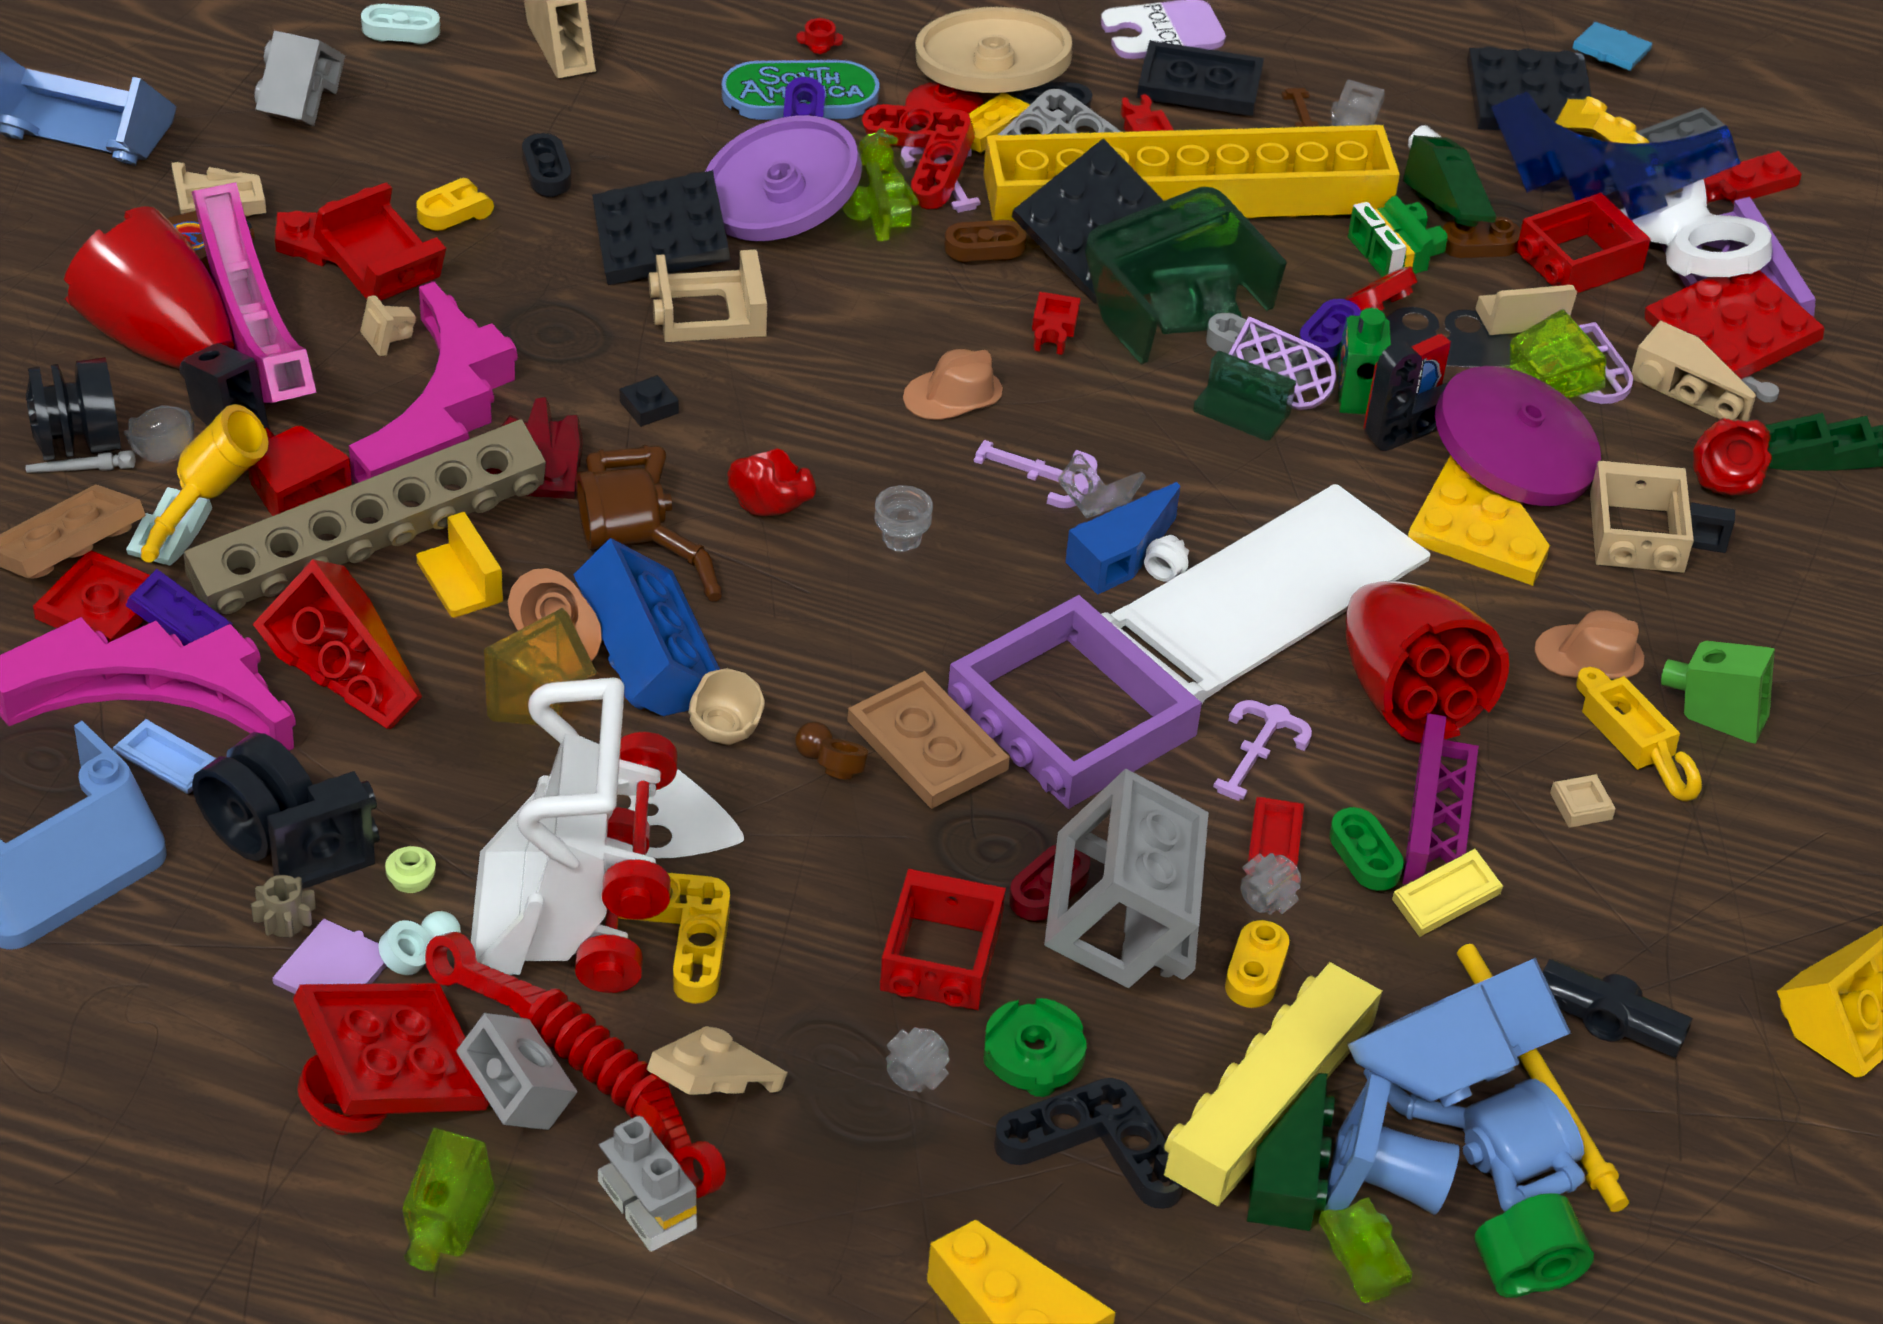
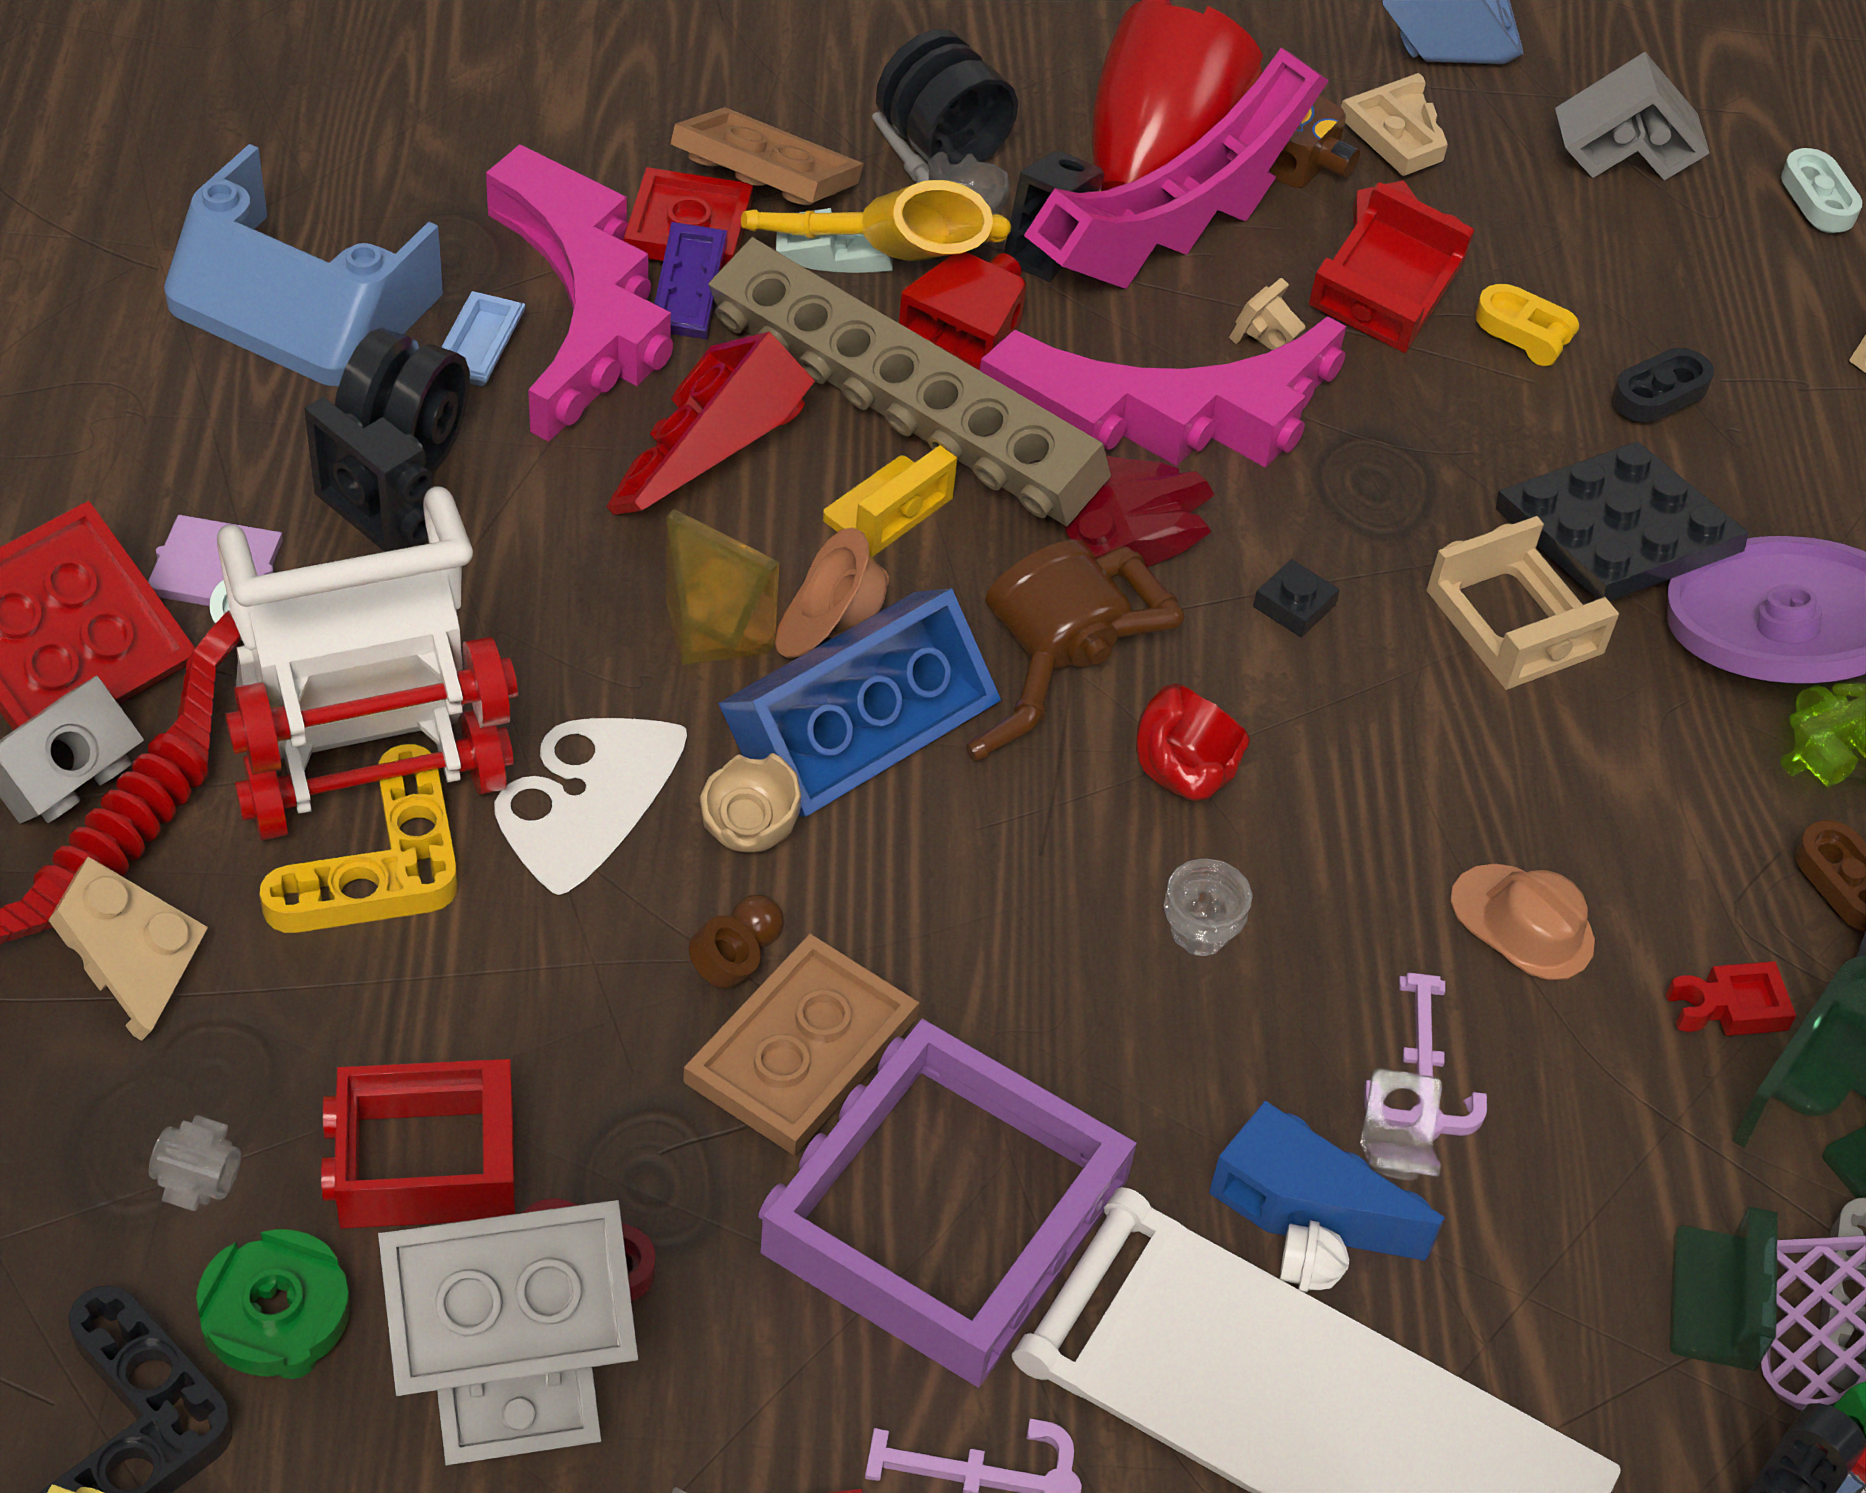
camera: 70 degrees right, 5 degrees up
(283, 906) = (273, 486): dark tan gear -> none

